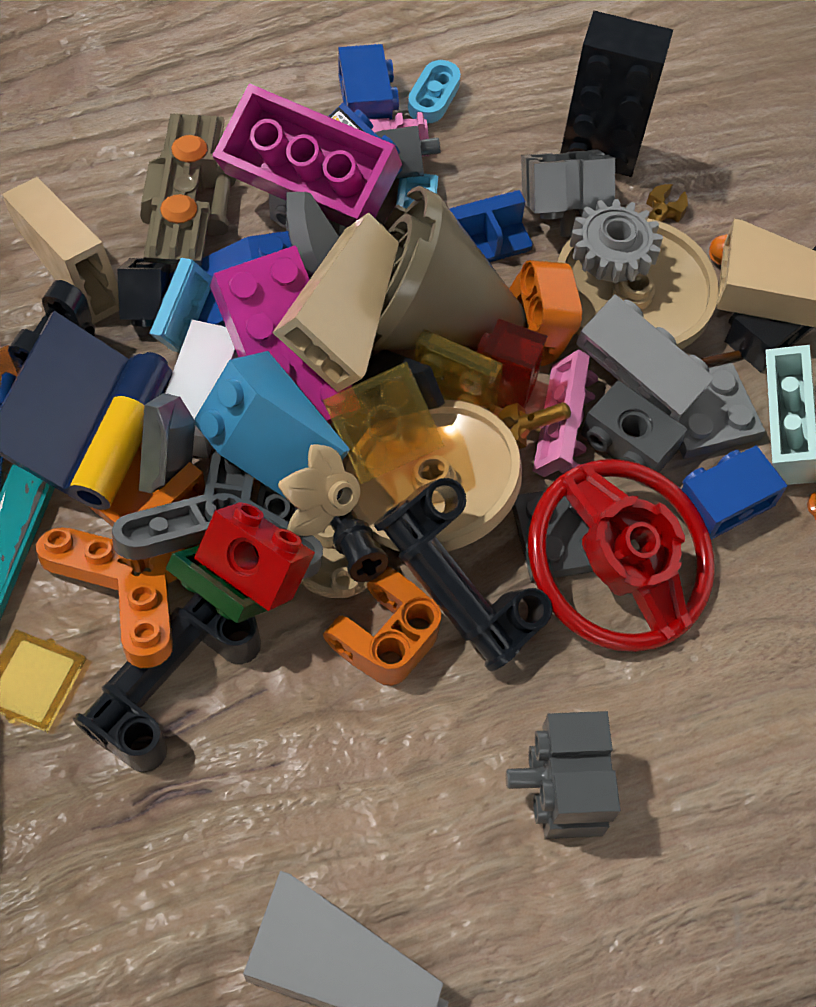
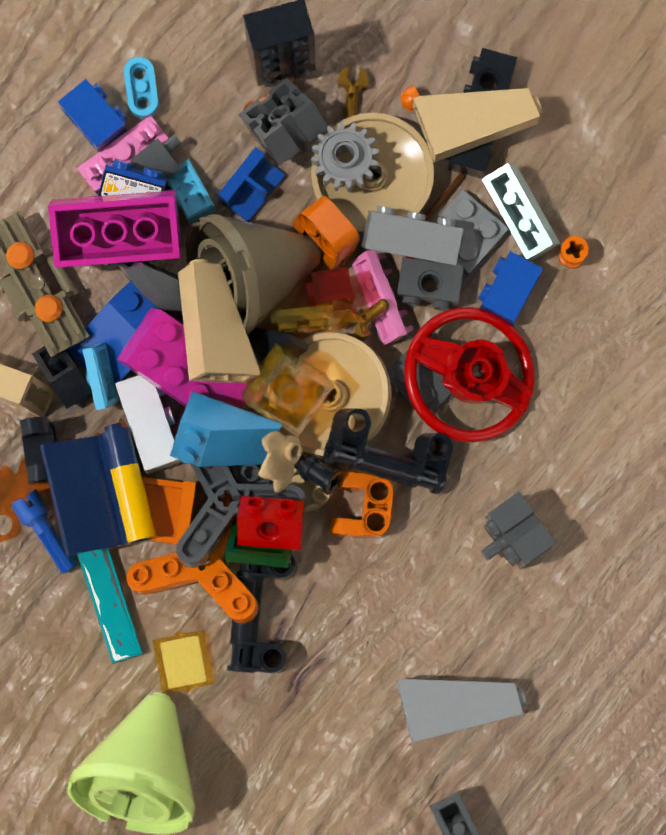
camera: 25 degrees left, 20 degrees up
(165, 441) = (165, 481): flat silver slope -> none

